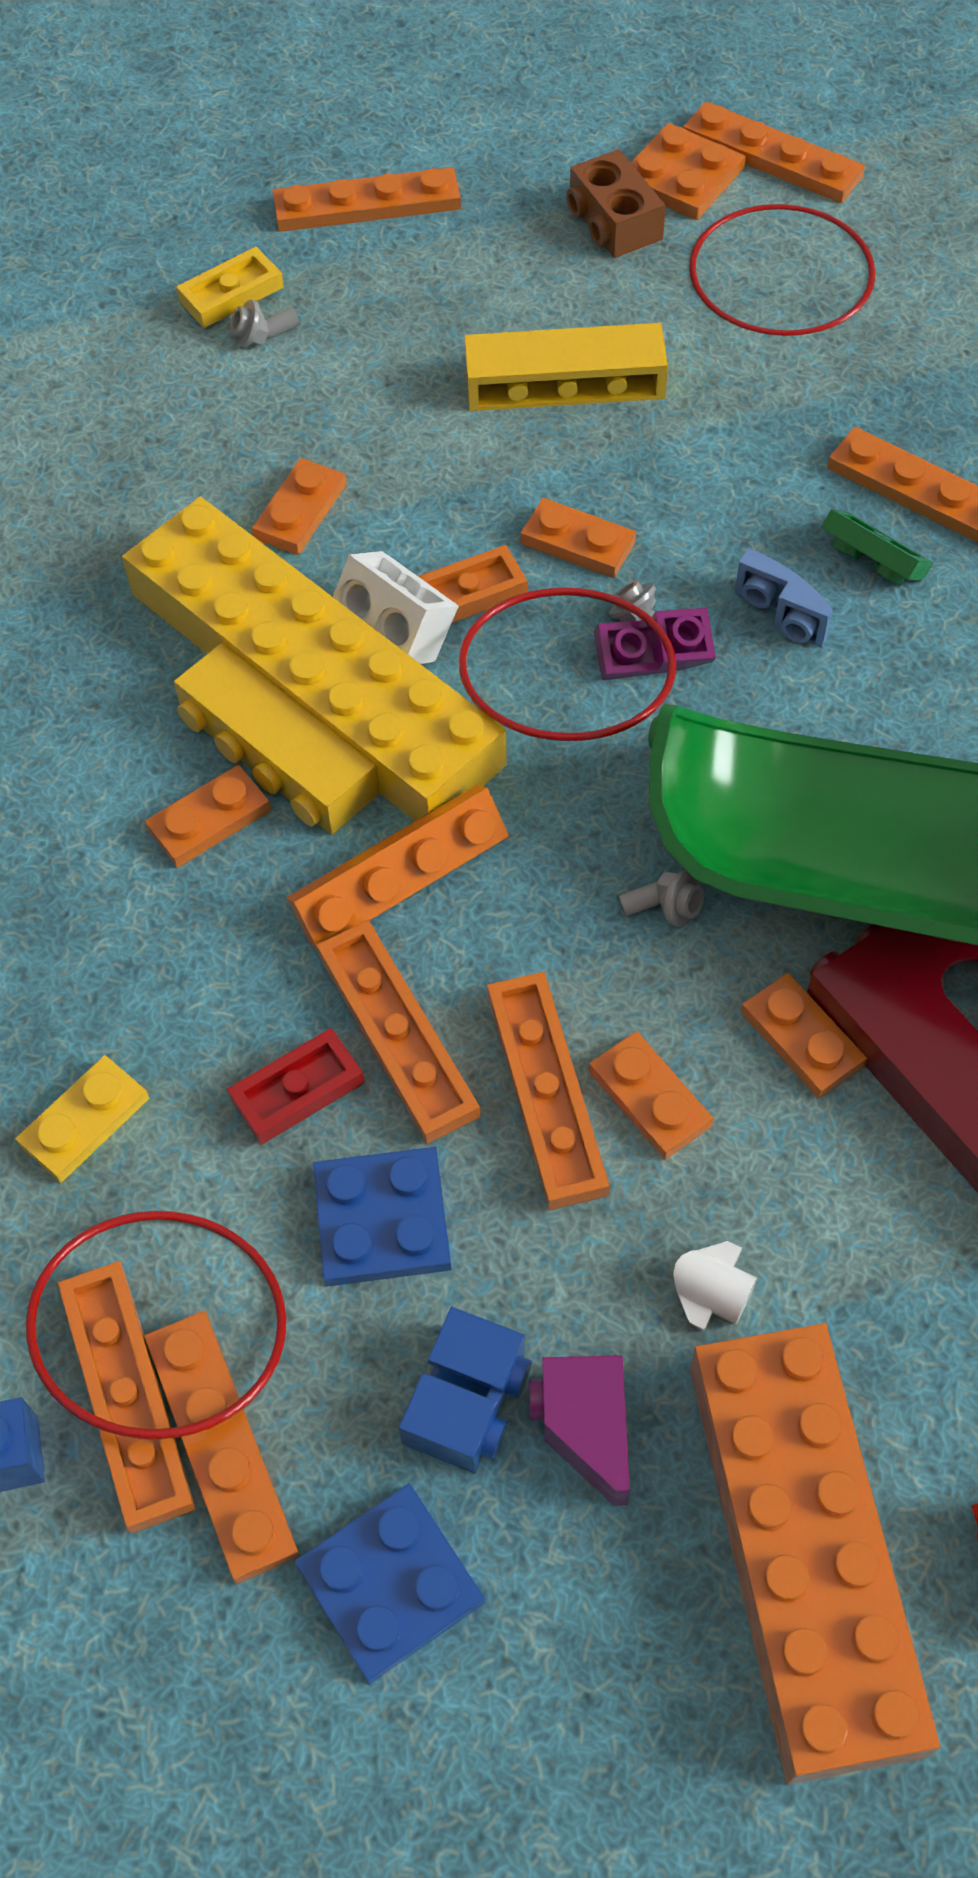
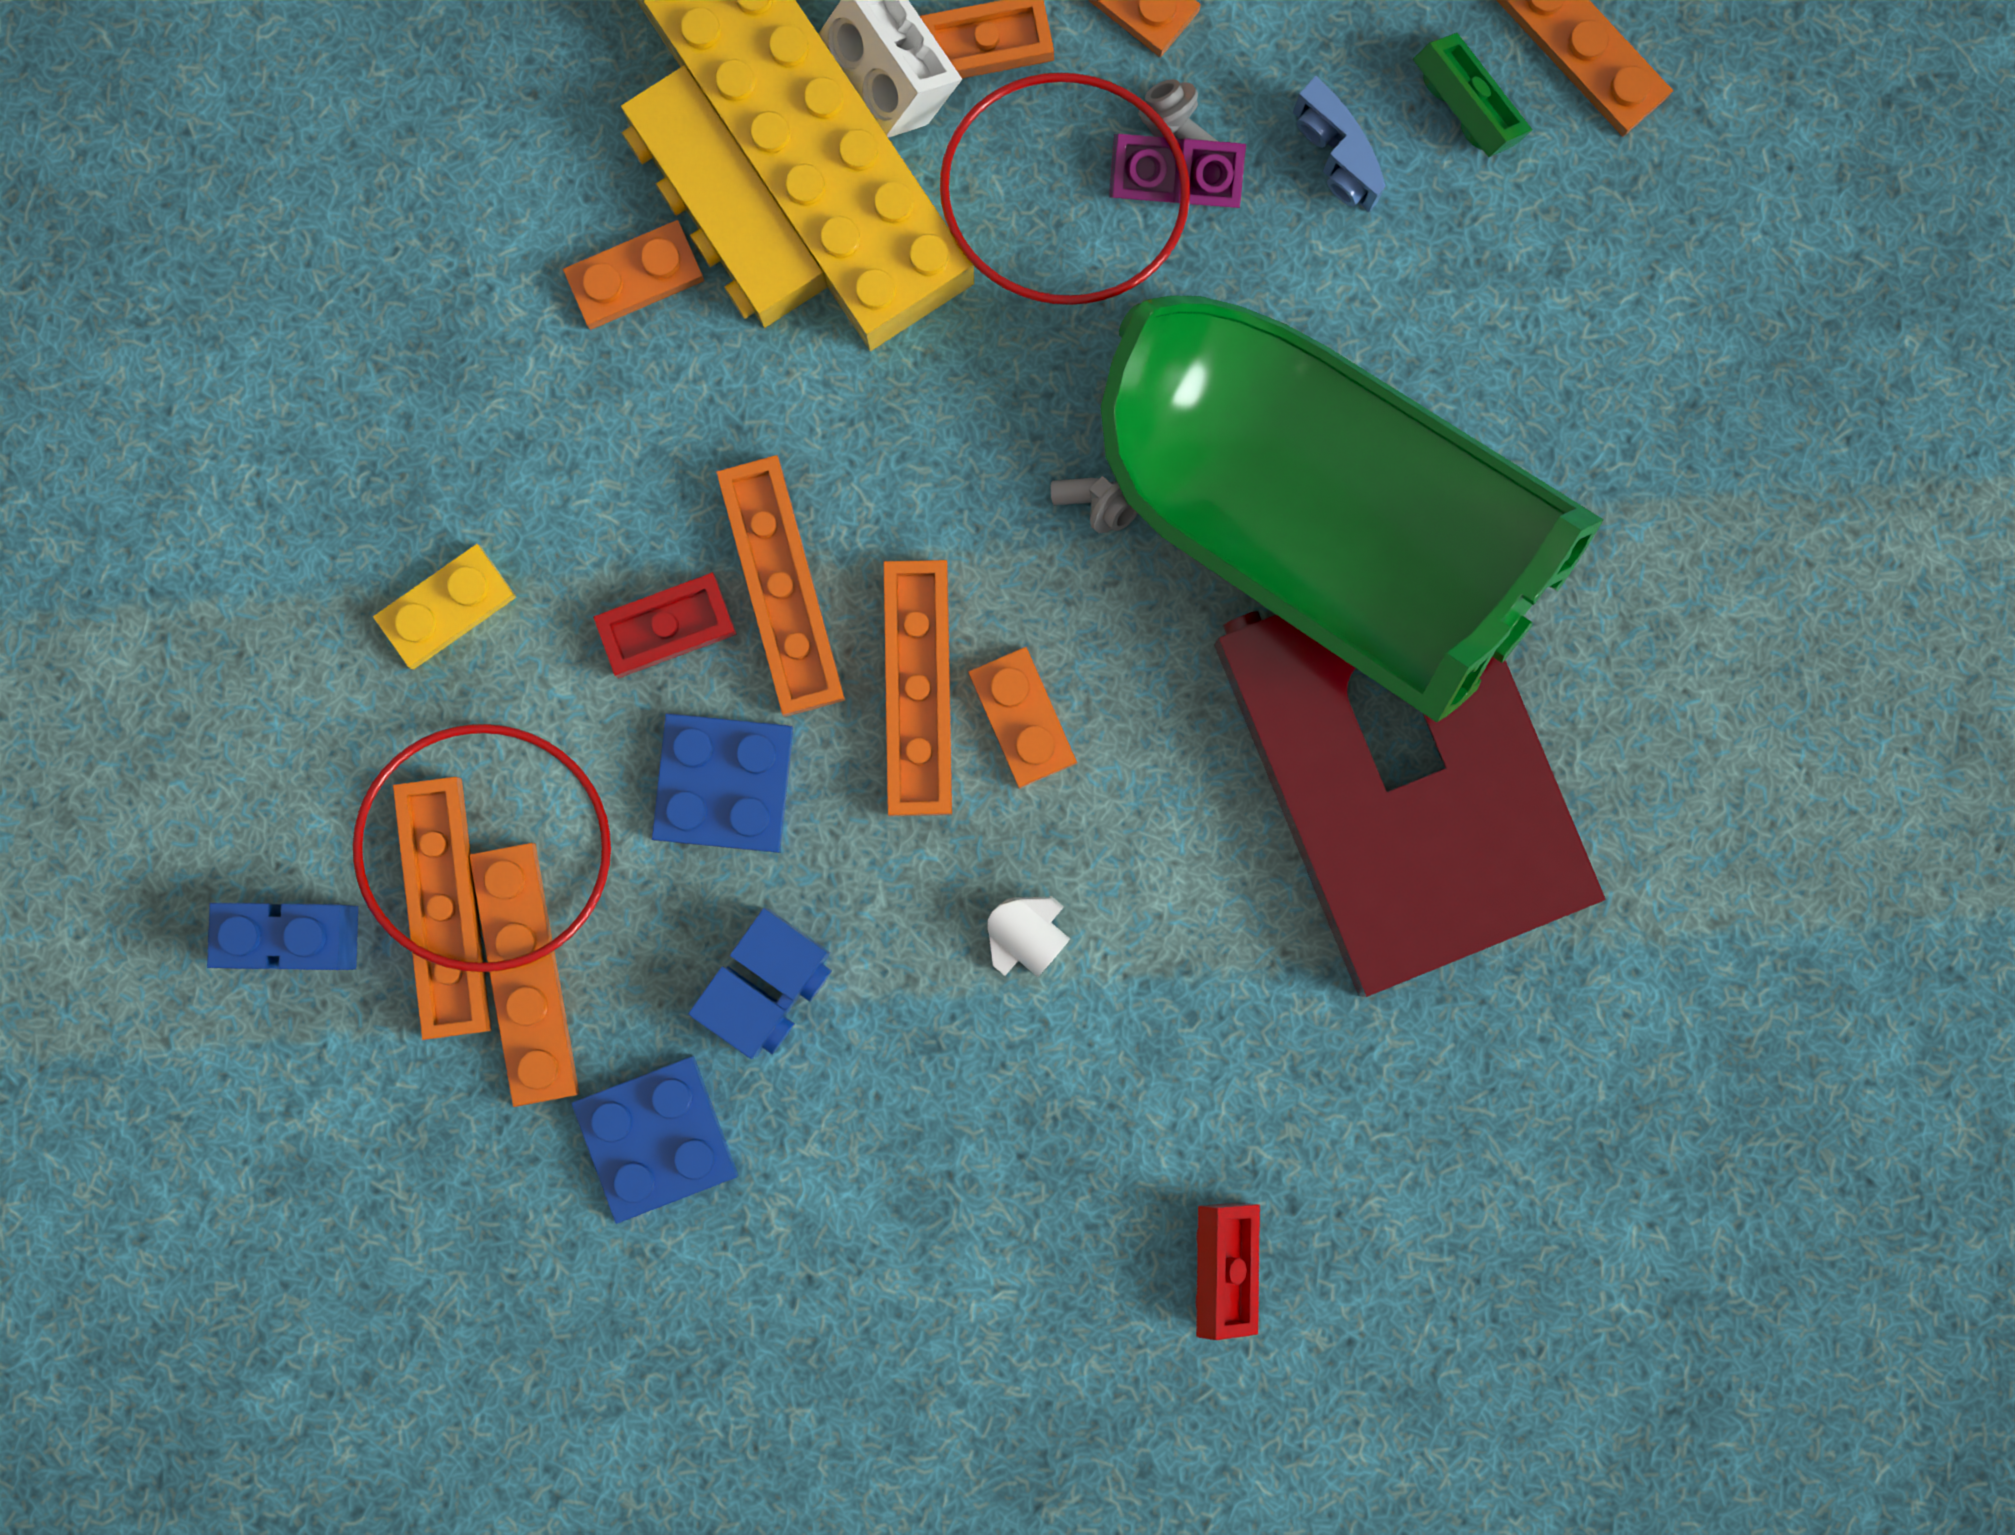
camera: 10 degrees right, 25 degrees up
(399, 866) = (824, 394): orange plate -> none
(586, 1419) = (868, 1038): magenta slope -> none
(803, 1035) = (1197, 688): orange plate -> none
(811, 1556) = (1038, 1208): orange brick -> none

